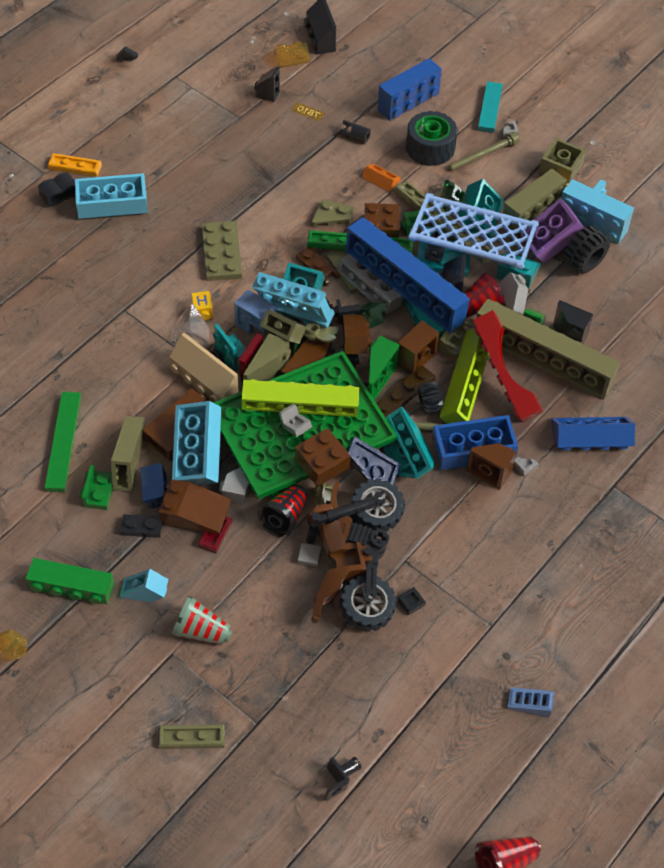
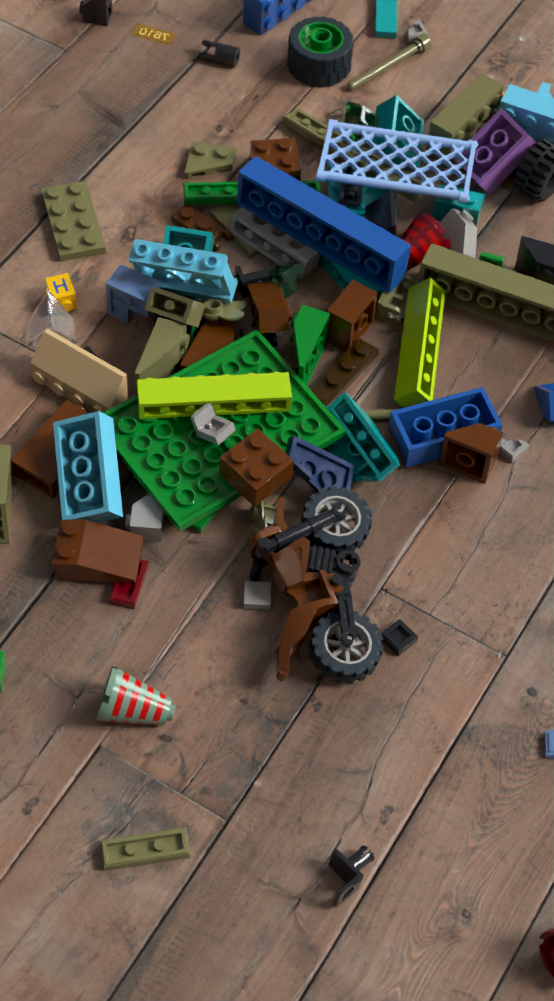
camera: 10 degrees left, 0 degrees up
(141, 526) = (30, 585): black plate -> none
(144, 586) = (48, 662): medium azure slope -> none
(153, 484) = (38, 530): dark blue hinge -> none
(228, 347) = (108, 344): teal bracket -> none
(249, 353) = (135, 349): dark red plate -> none
(283, 511) = (214, 544): black cone -> none
(380, 177) = (262, 107): orange slope -> none
(409, 220) = (311, 158): green bracket -> none
(430, 397) = (377, 377): black gear -> none
(491, 332) = (444, 284): red arch -> none
(563, 158) = (491, 59): olive brick -> none

